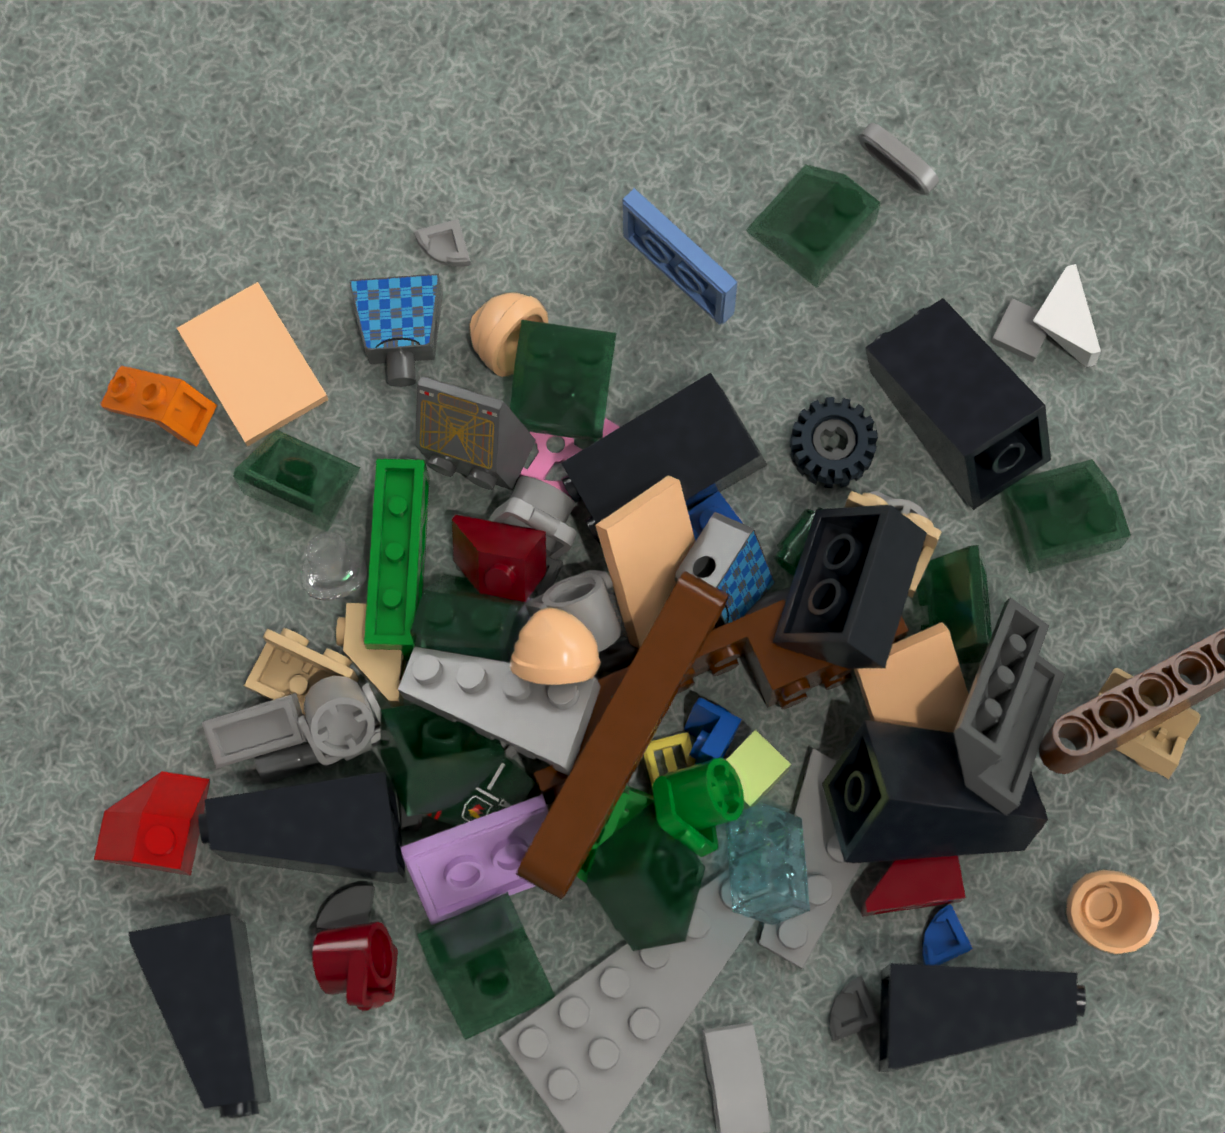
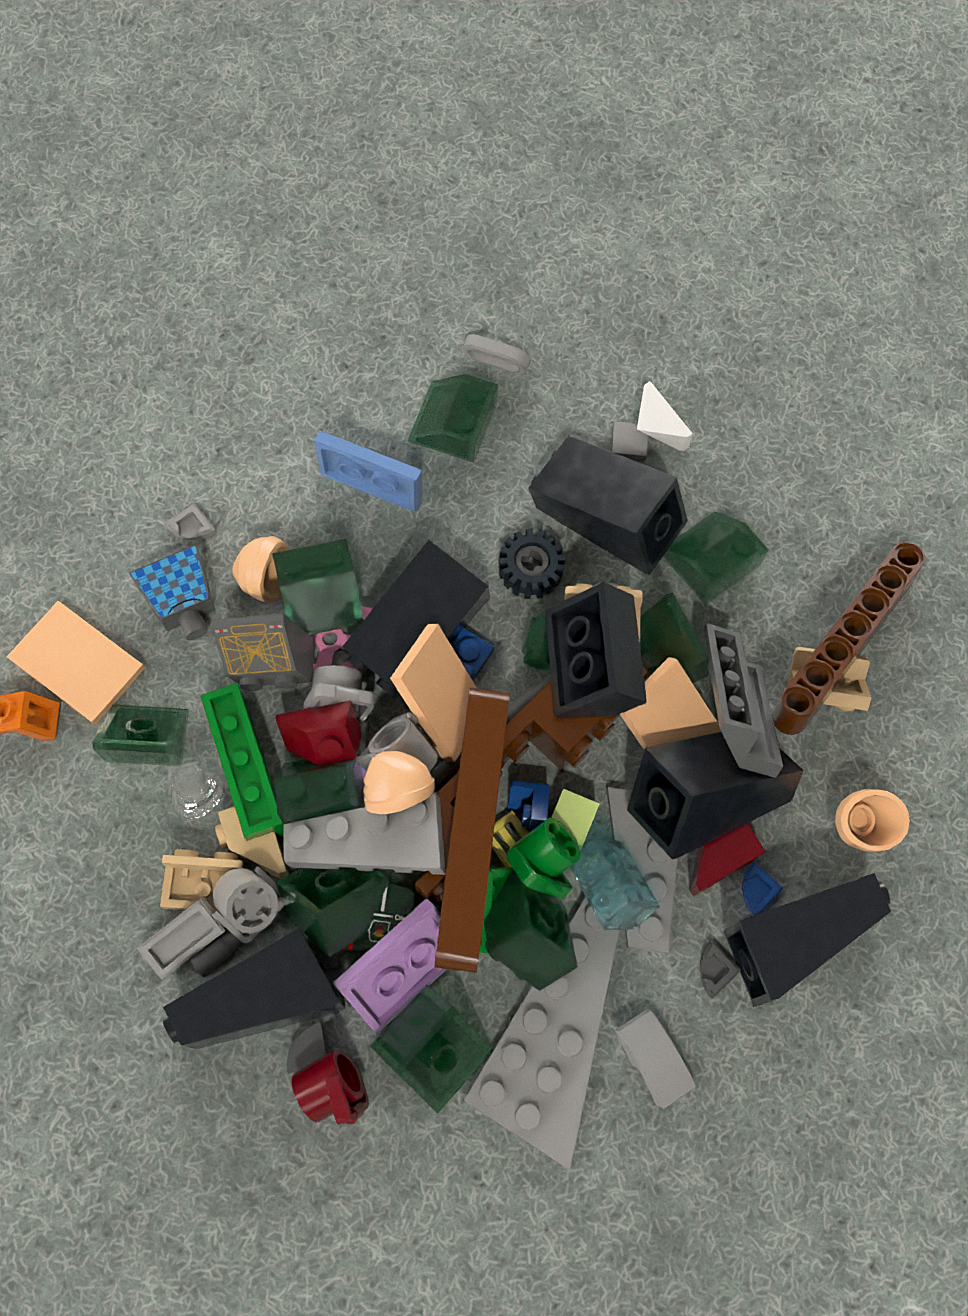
camera: 30 degrees left, 5 degrees down
(155, 825) = (128, 1044): red slope -> none
(210, 1006) = (227, 1174): black slope -> none
(731, 560) = (496, 668): dark grey torso -> none

